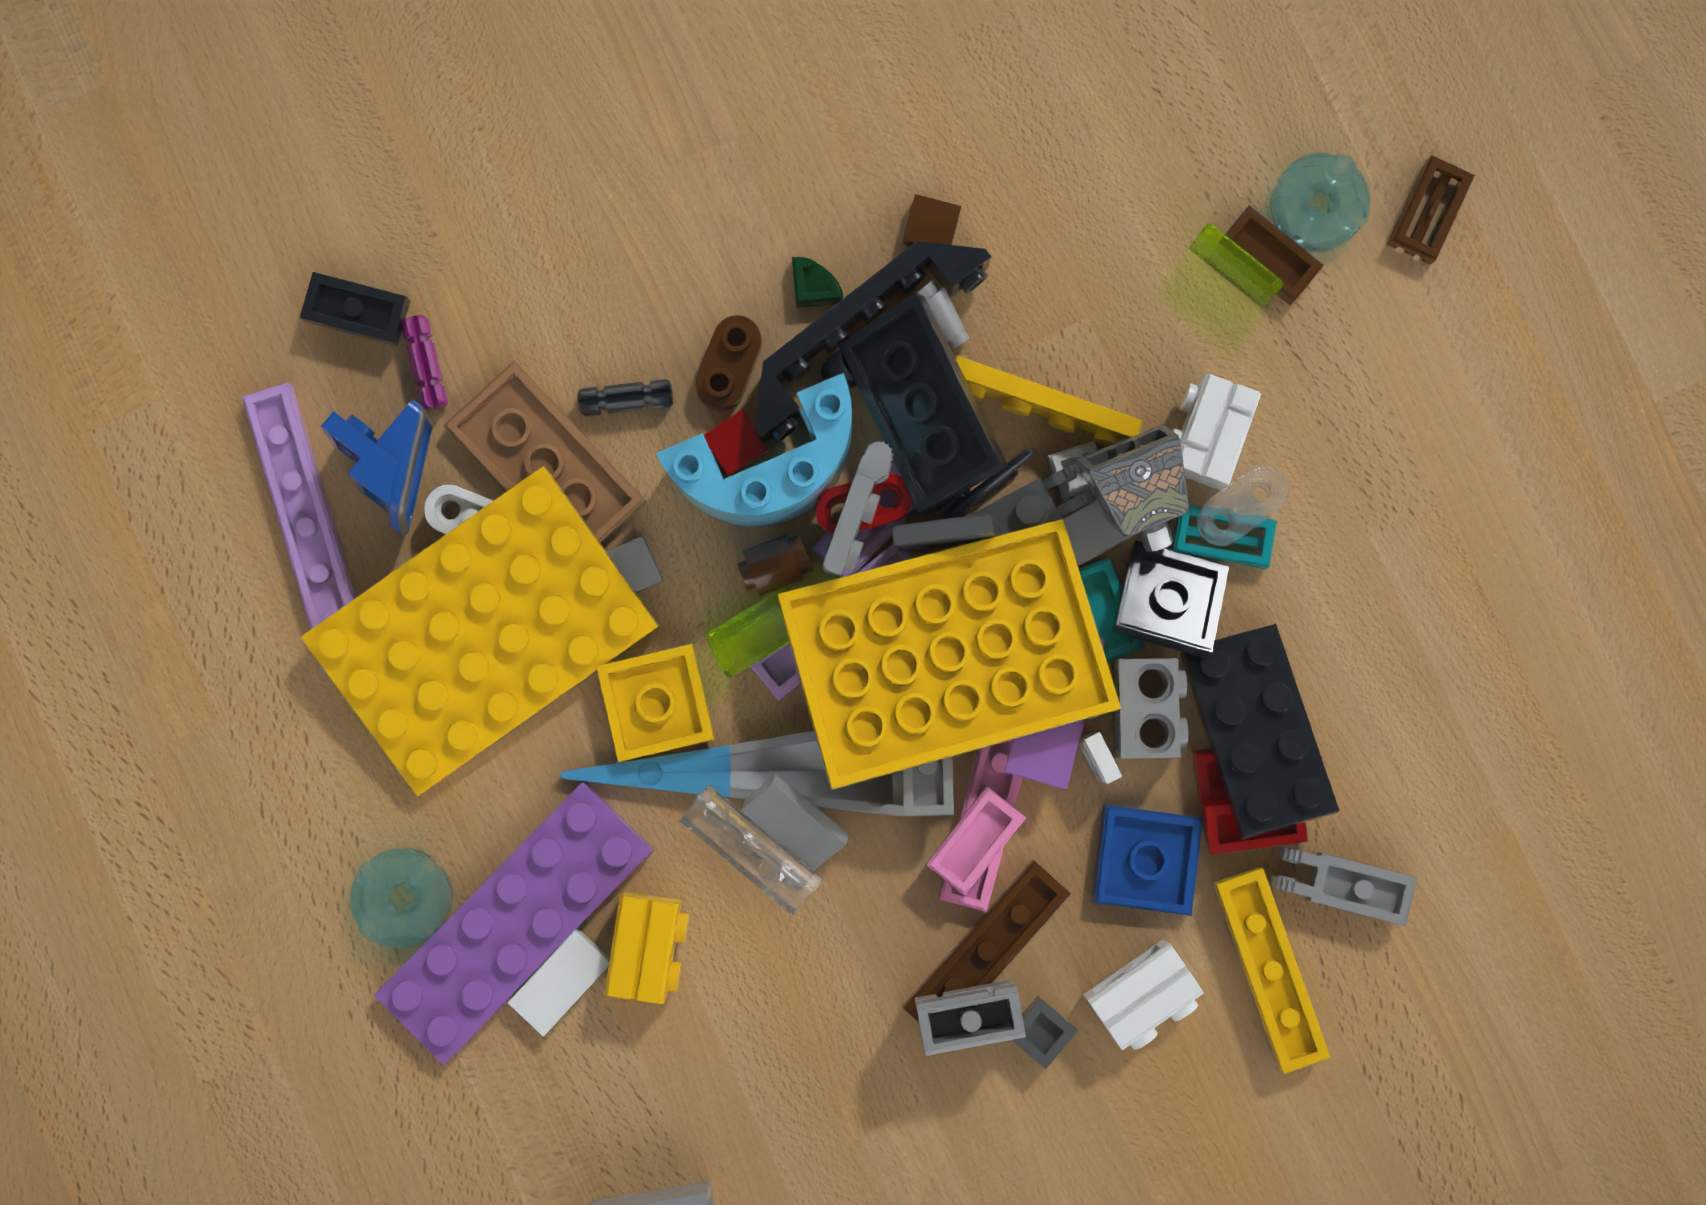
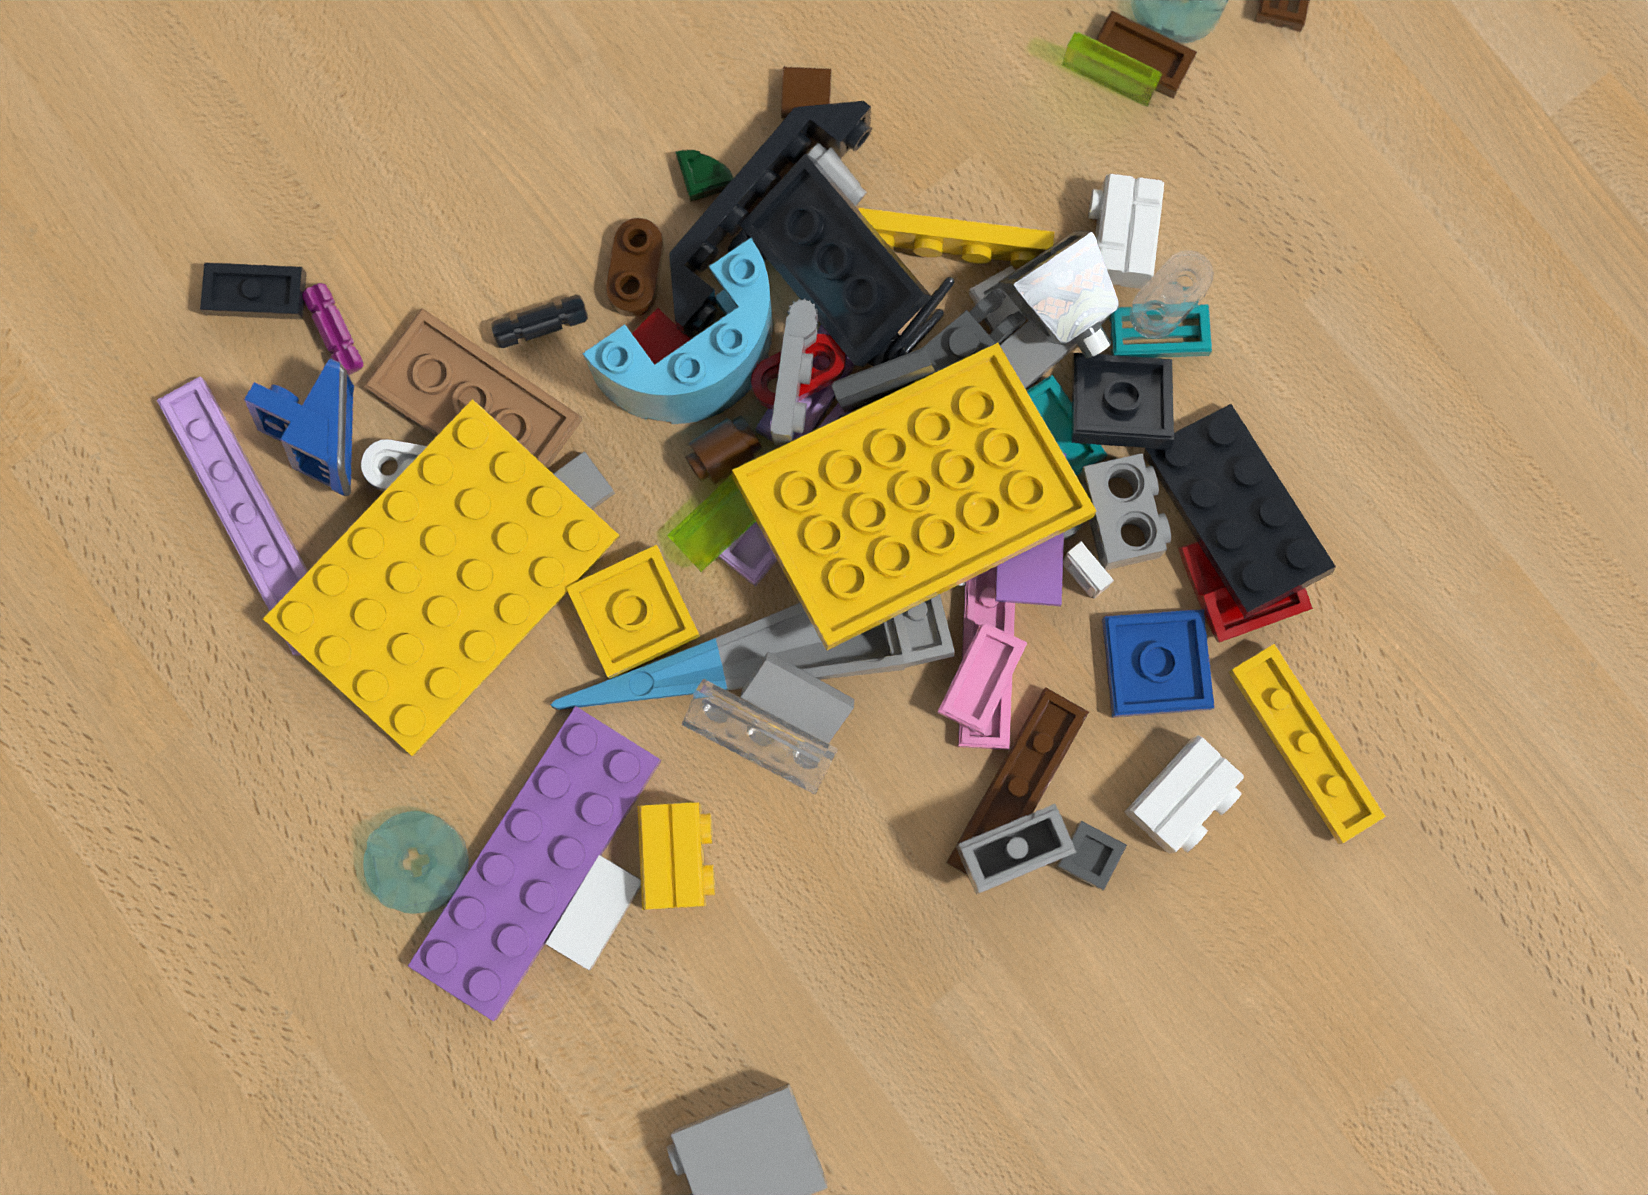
camera: 10 degrees left, 5 degrees down
(1350, 886) = (1363, 643): light grey hinge -> none

